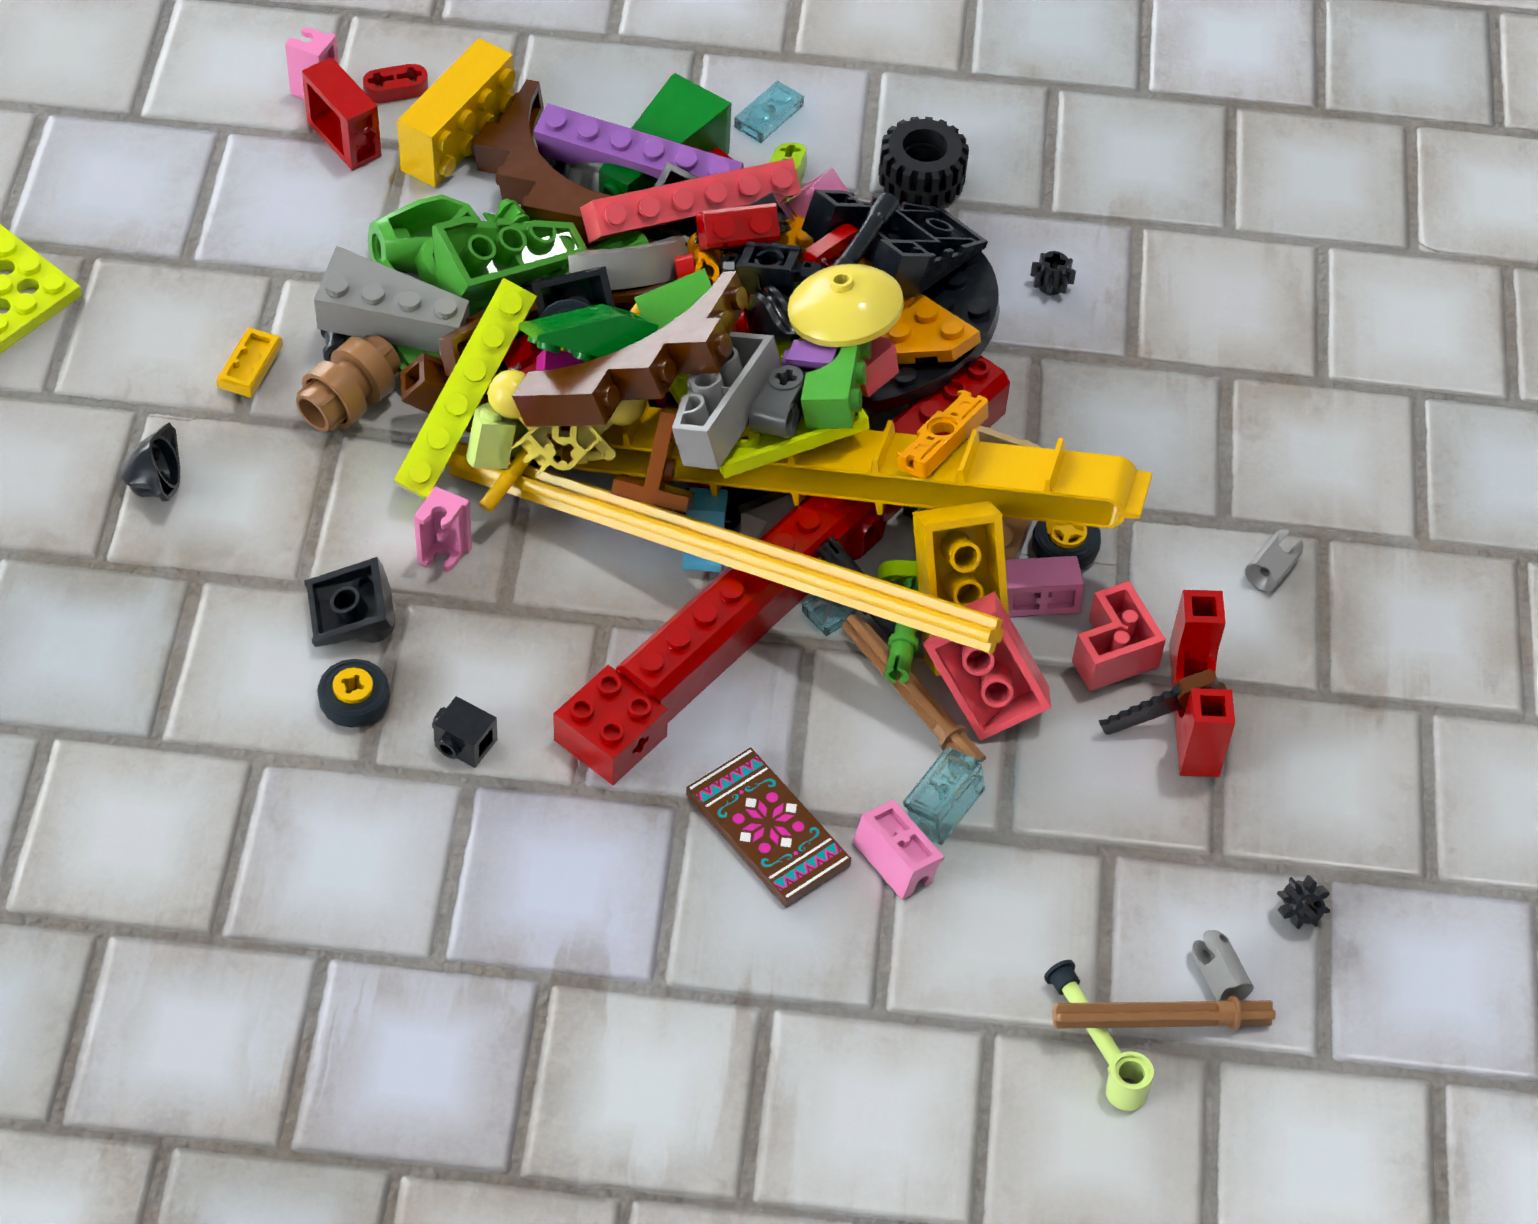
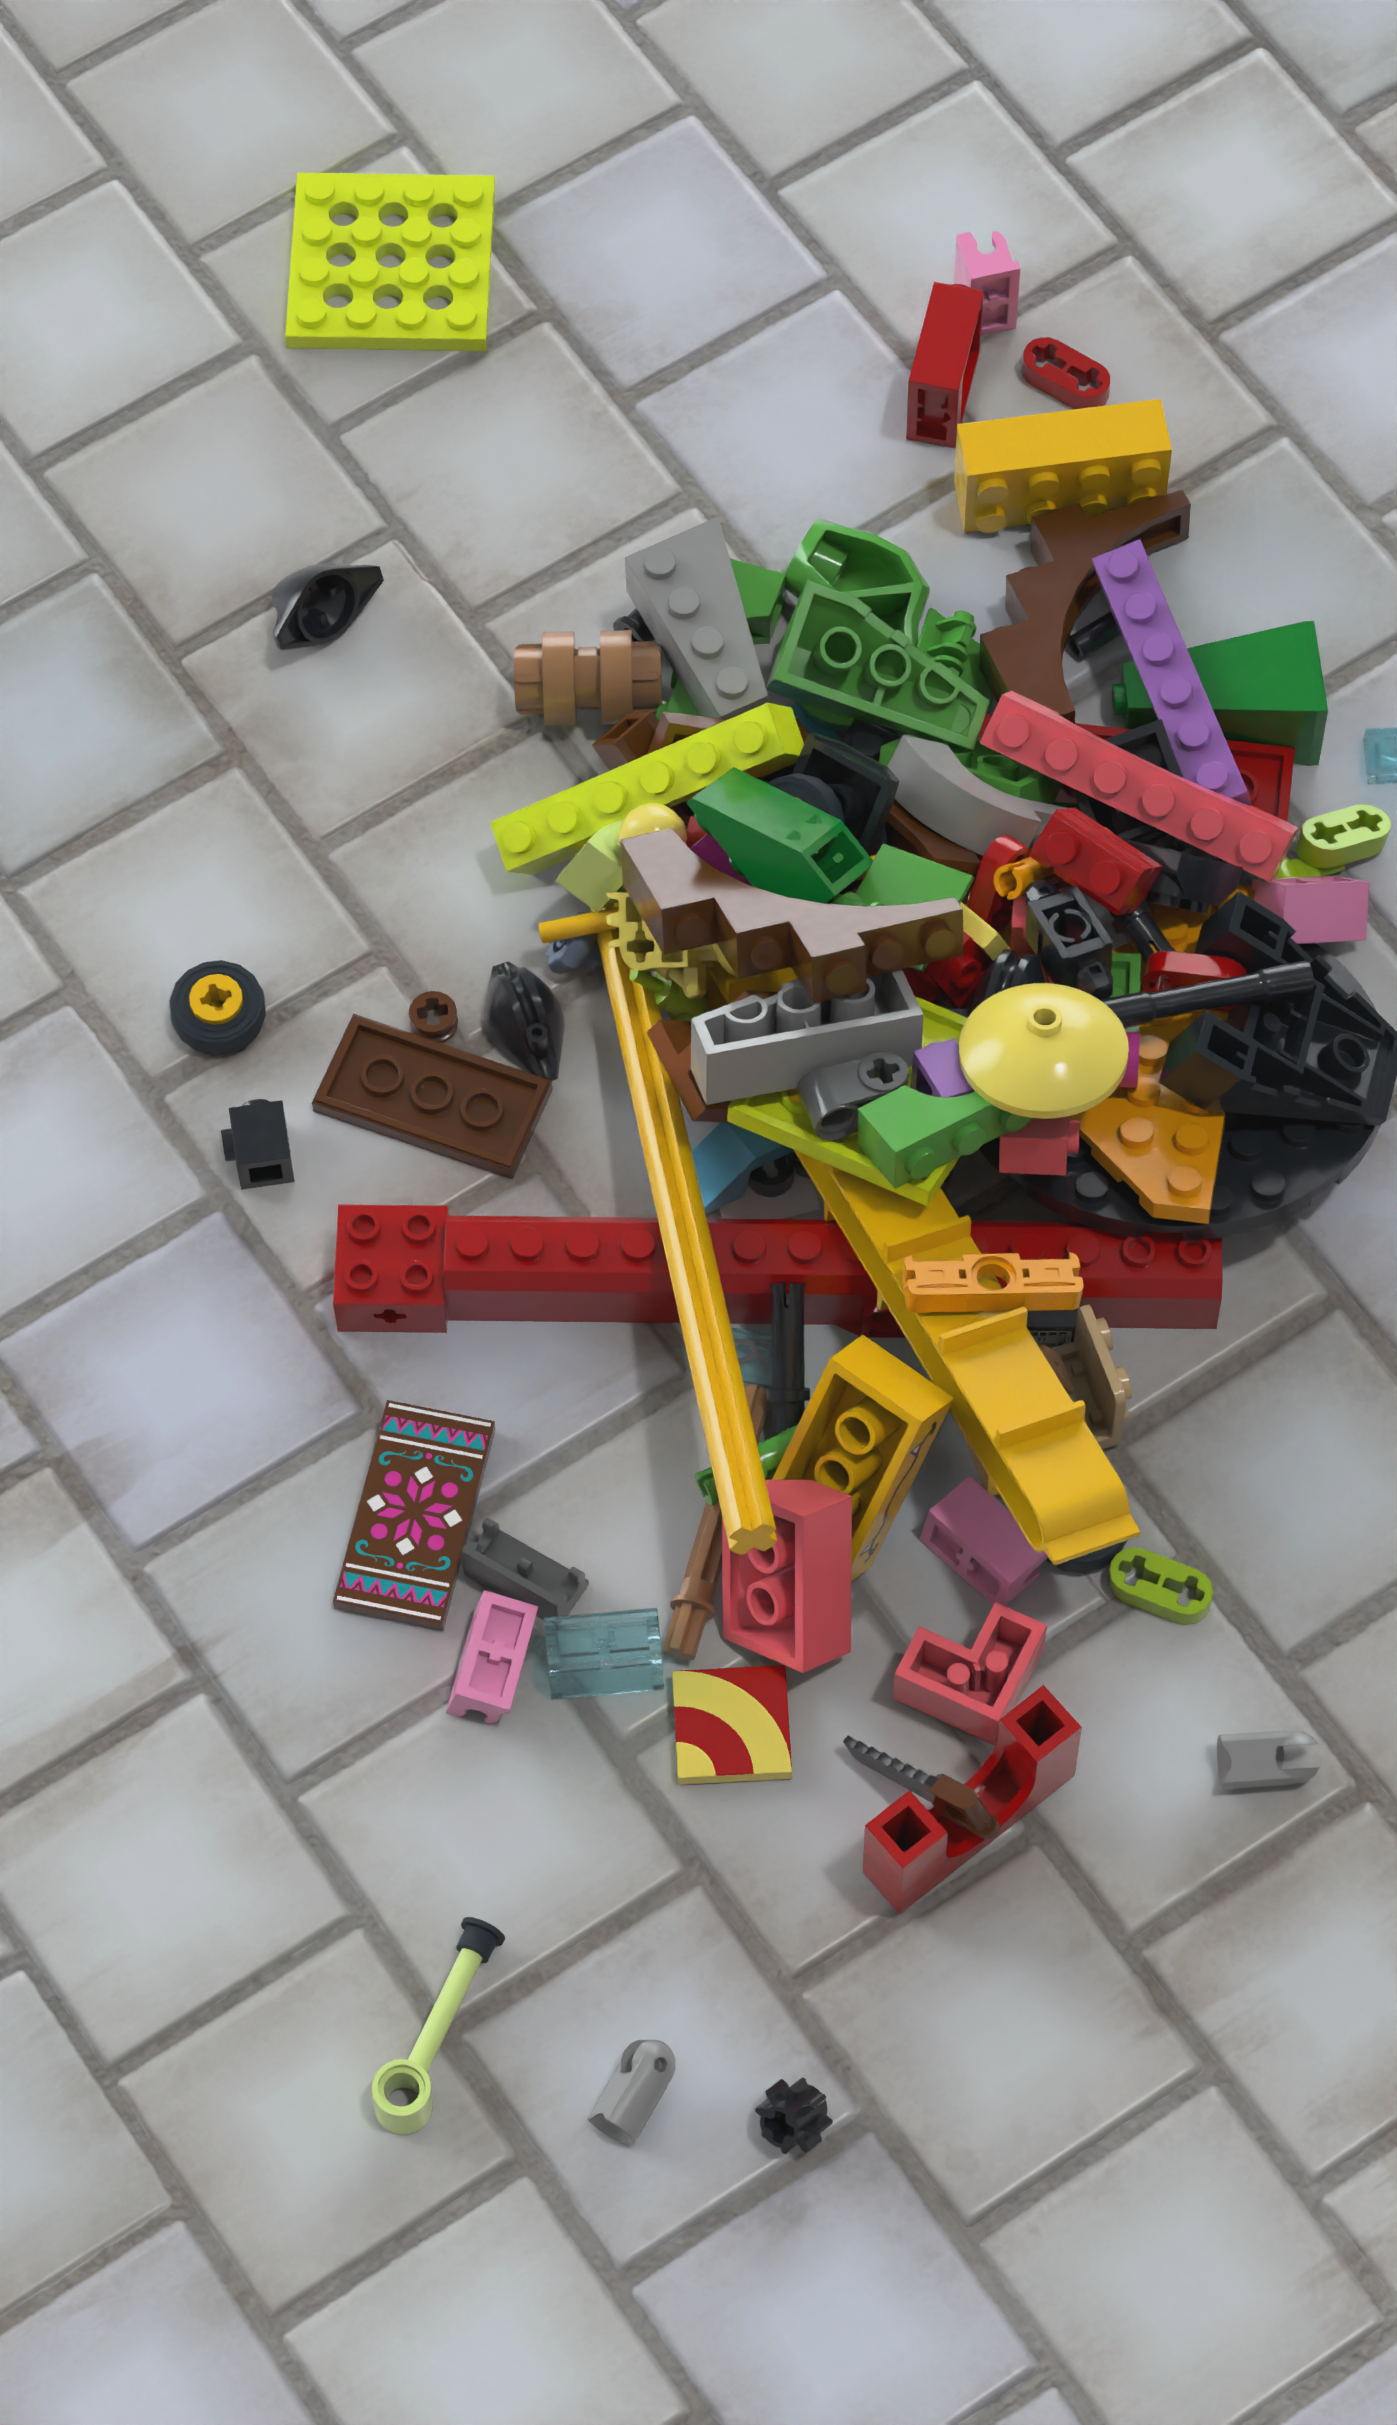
camera: 55 degrees right, 10 degrees up
(249, 362) = (540, 568): yellow plate -> none
(351, 604) = (317, 916): black slope -> none
(443, 528) = (477, 911): bright pink hinge -> none
(470, 612) = (448, 1016): none -> reddish brown bush
(501, 514) = (574, 953): none -> sand blue piece
(515, 561) = (524, 1020): none -> black hat
(515, 638) = (432, 1096): none -> reddish brown tile
(593, 473) = (671, 996): none -> lime piece
(846, 804) = (522, 1572): none -> dark grey hinge
(1038, 772) = (731, 1724): none -> tile
(1134, 536) = (1159, 1588): none -> lime beam
(1164, 1014) = (513, 2073): medium nougat axle -> none

